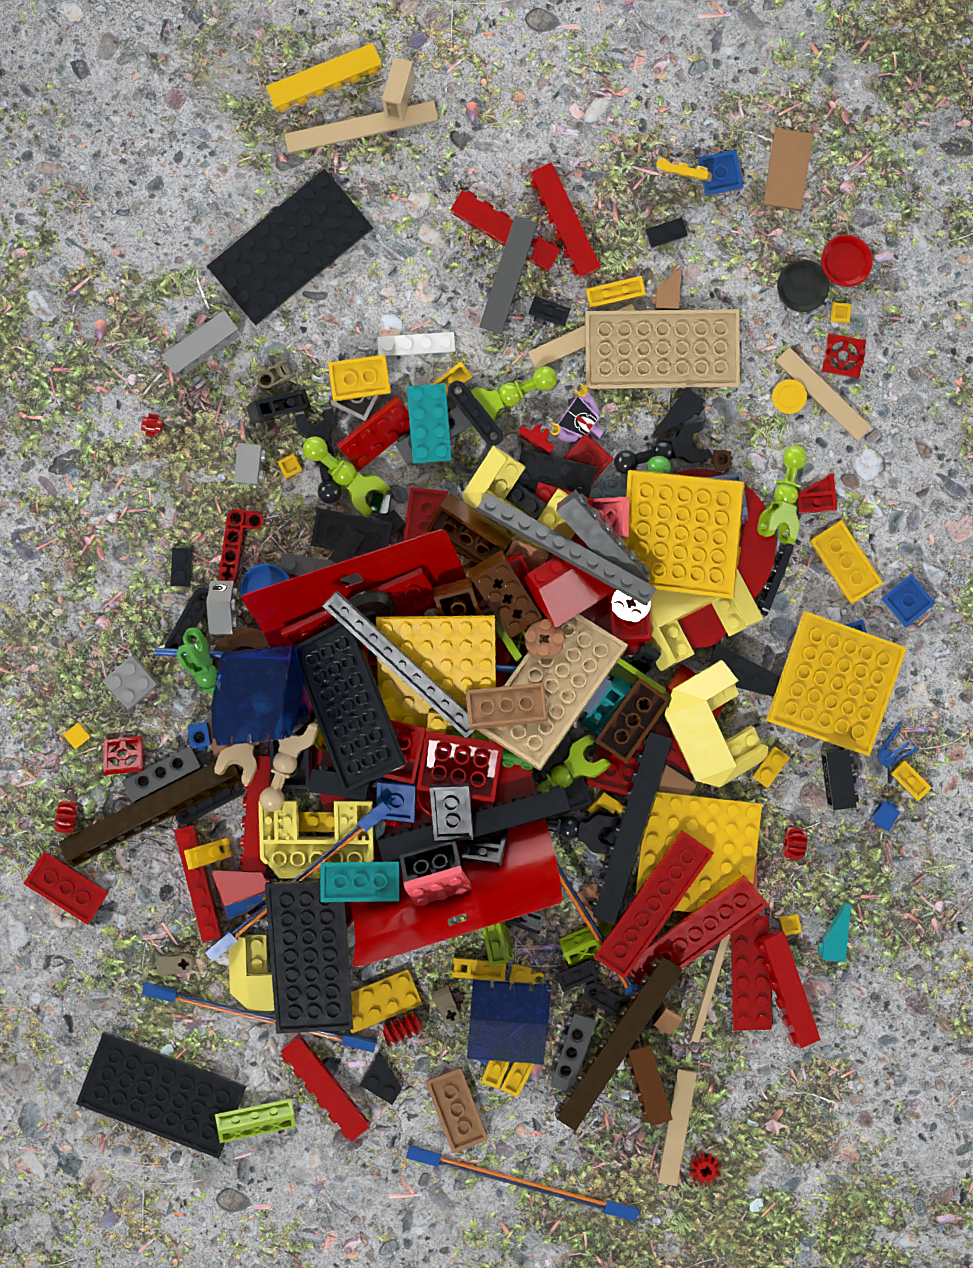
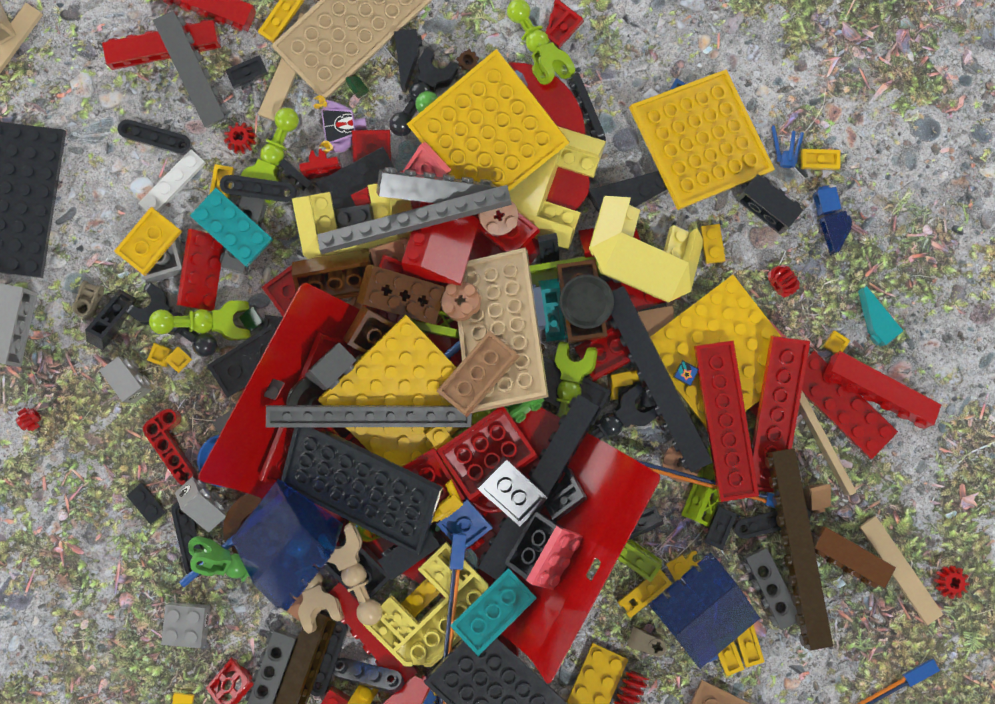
camera: 40 degrees left, 5 degrees down
(200, 727) = (266, 613): blue brick -> none
(228, 841) = (368, 675): none -> black plate
(300, 482) = (178, 359): none -> yellow plate
(399, 778) = (448, 505): none -> yellow piece
(406, 603) = (331, 367): none -> dark grey slope
(435, 297) = (154, 137): none -> black plate
(493, 353) = (243, 131): none -> red gear
(511, 419) = (289, 171): none -> black plate
(621, 400) = (357, 86): none -> dark green slope
(634, 726) = (586, 301): none -> pearl dark grey piece
(657, 843) = (685, 373): none -> tile
(846, 562) = (625, 51): yellow tile -> none
(870, 843) = (835, 230): none -> clear blue slope
(908, 600) = (694, 36): blue plate -> none

